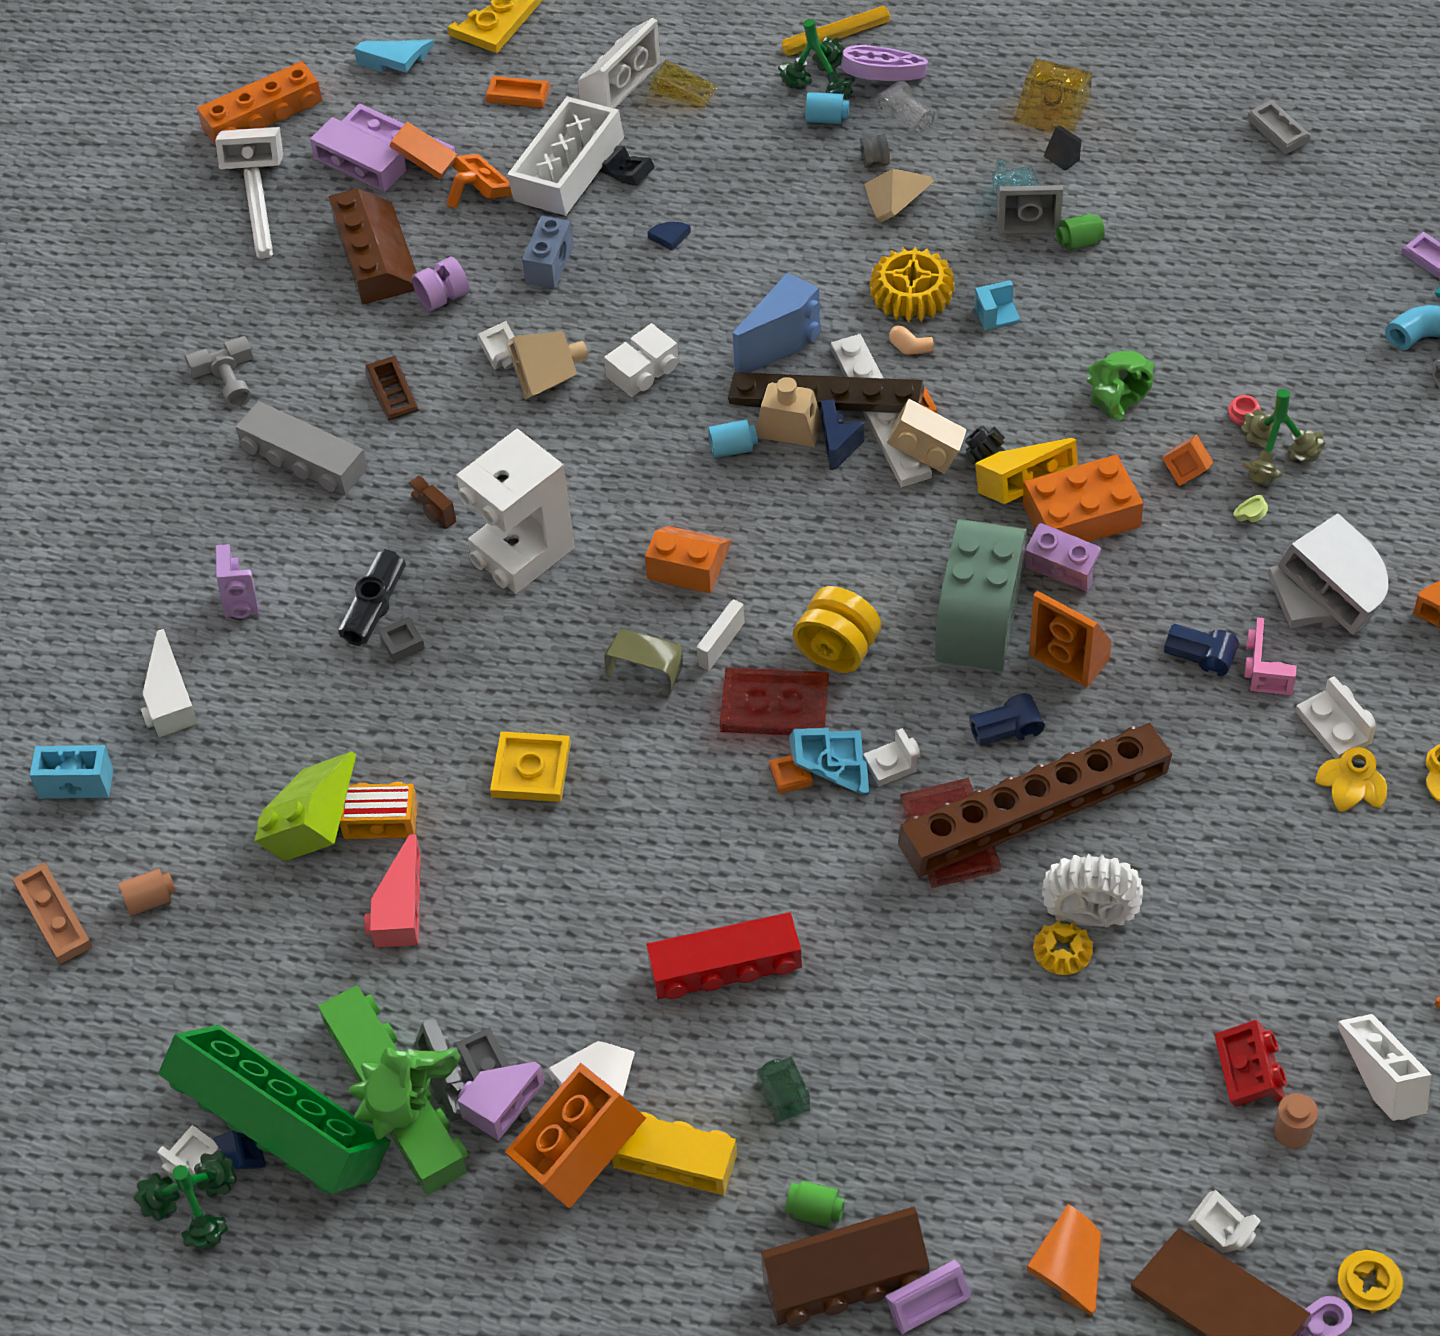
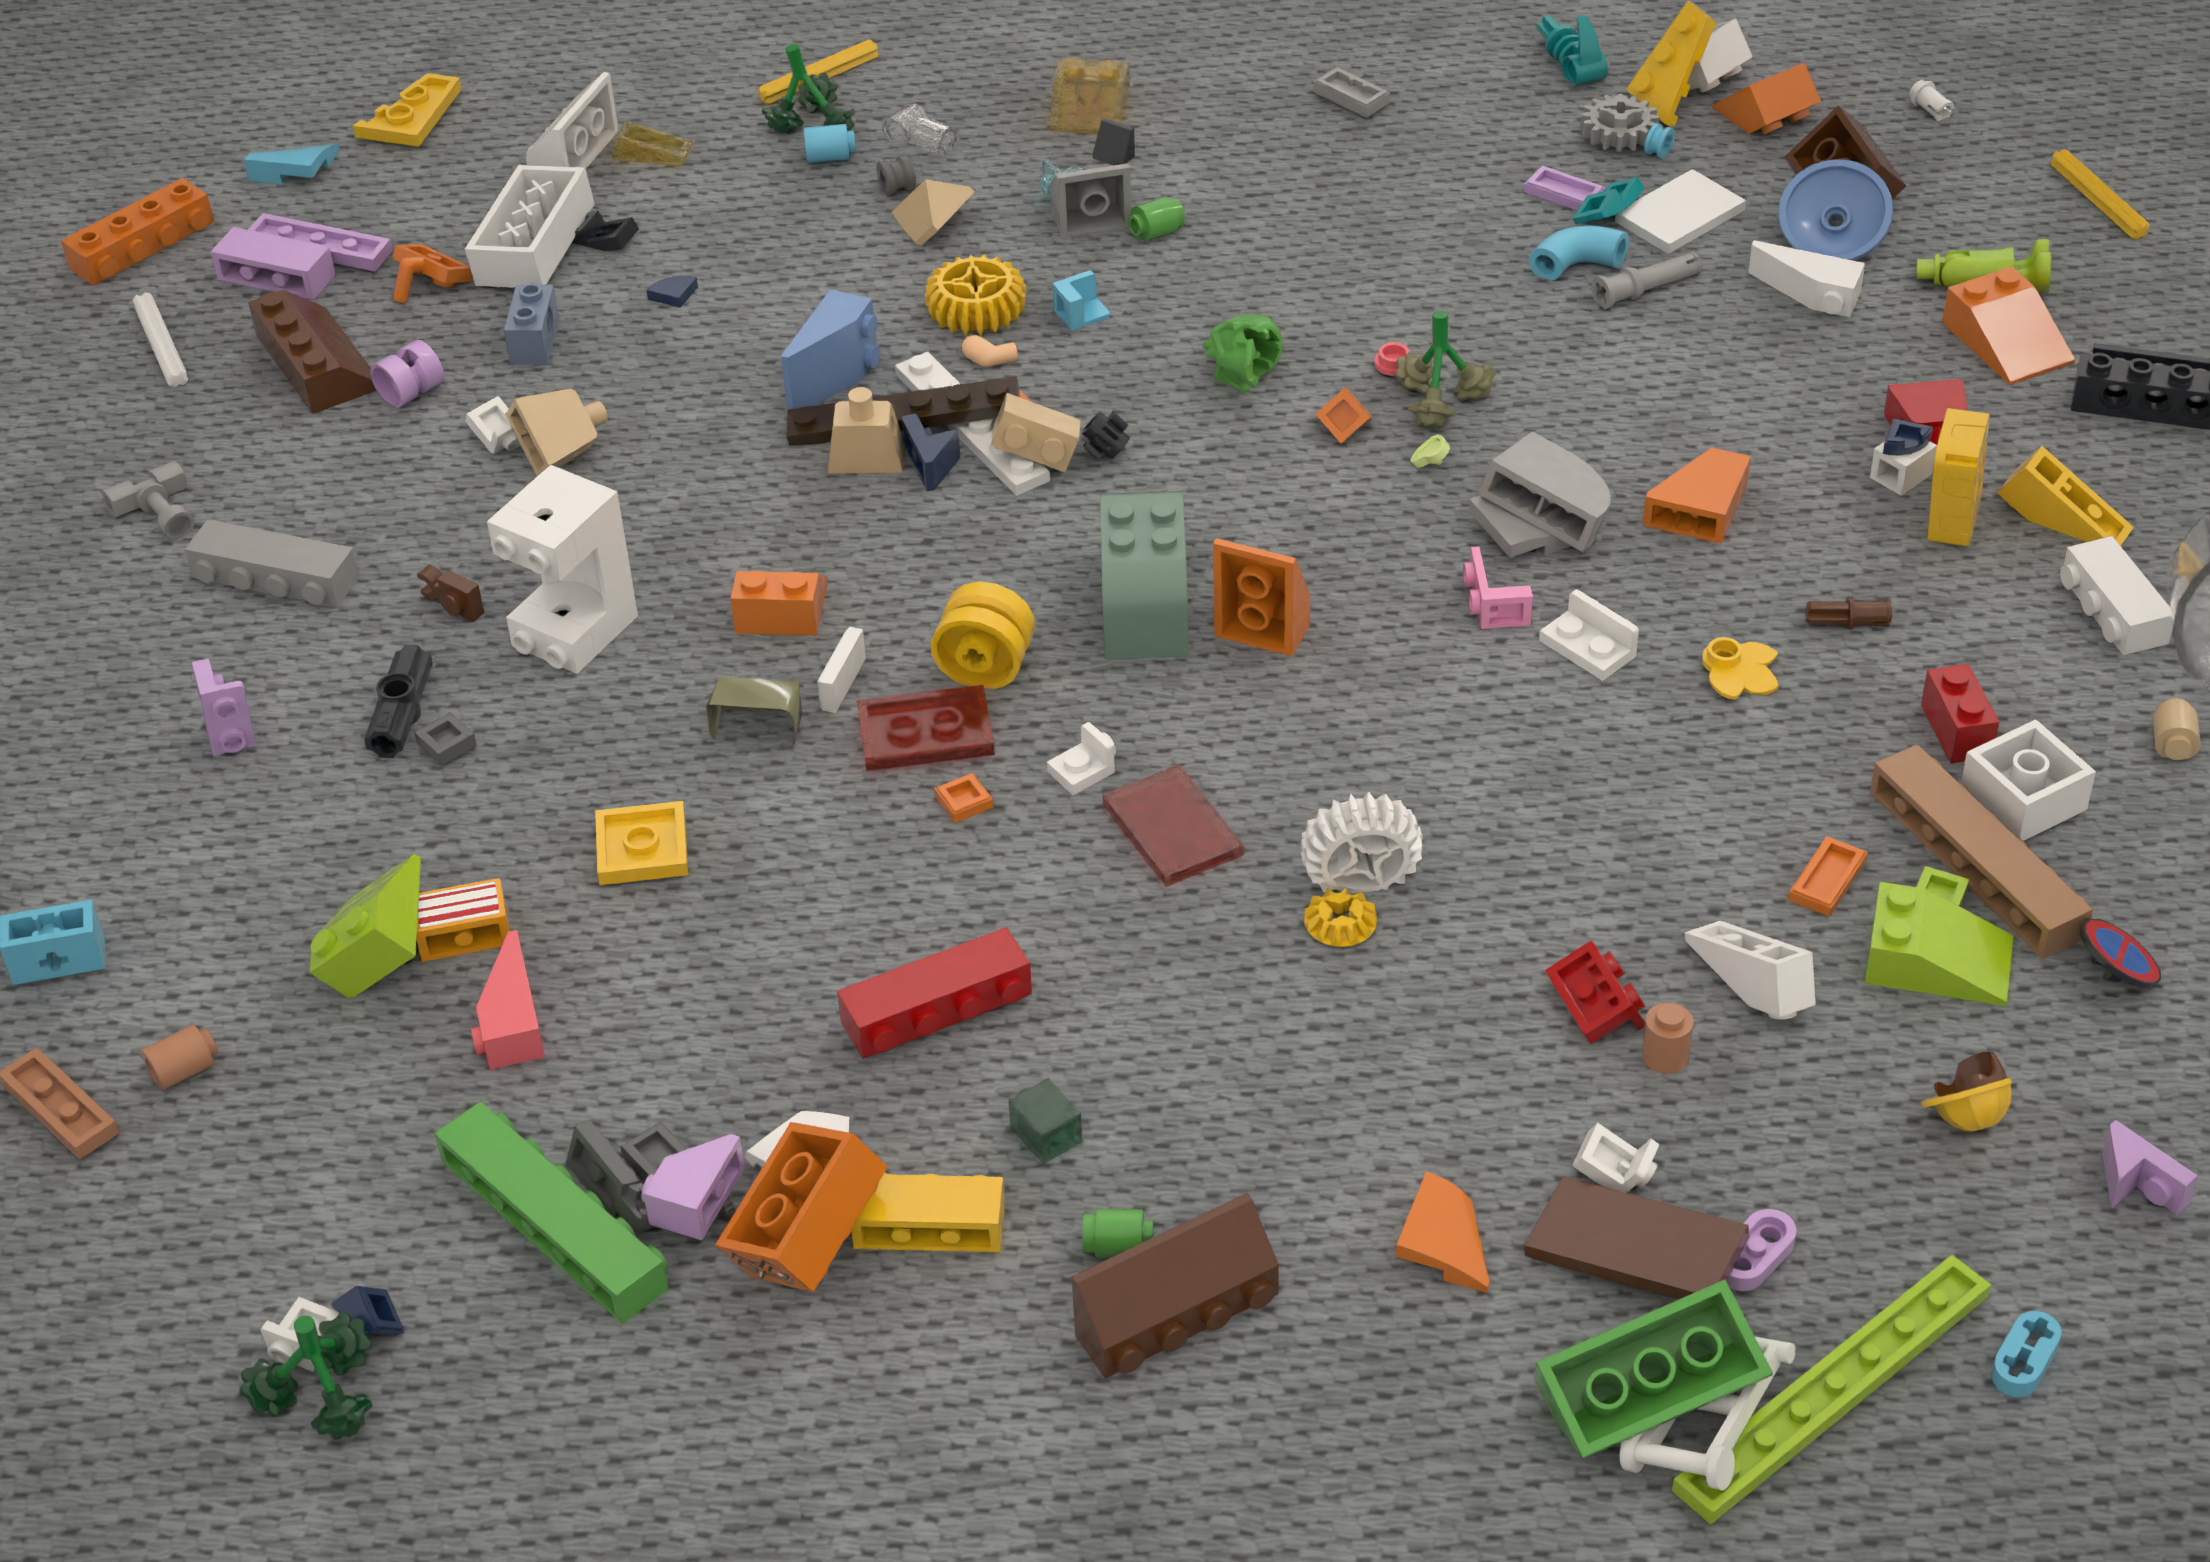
camera: 15 degrees left, 10 degrees down
(165, 692) = (158, 842): white slope -> none
(249, 148) = (135, 273): white brick -> none
(273, 1108) = (403, 1253): green brick -> none
(385, 368) = (362, 467): reddish brown slope -> none
(397, 1086) = (562, 1189): bright green head -> none
(423, 150) = (354, 243): orange tile -> none
(517, 91) = (453, 179): orange tile -> none
(636, 369) = (670, 425): white piece -> none
(732, 438) = (802, 474): medium azure brick -> none
(832, 756) = (1009, 768): medium azure slope -> none
(882, 63) = (883, 92): lavender piece -> none
(927, 852) = (1262, 769): reddish brown brick -> none
(928, 1296) = (1284, 1305): lavender tile -> none
(1004, 473) = (1159, 450): yellow slope -> none
(1016, 718) = (1218, 695): dark blue piece -> none
(1062, 557) = (1227, 519): lavender bracket -> none
(1085, 500) = (1236, 473): orange brick -> none
(1211, 650) = (1428, 593): dark blue piece -> none
(1353, 783) = (1626, 696): yellow plate -> none
(1387, 1278) = (1823, 1182): yellow gear -> none

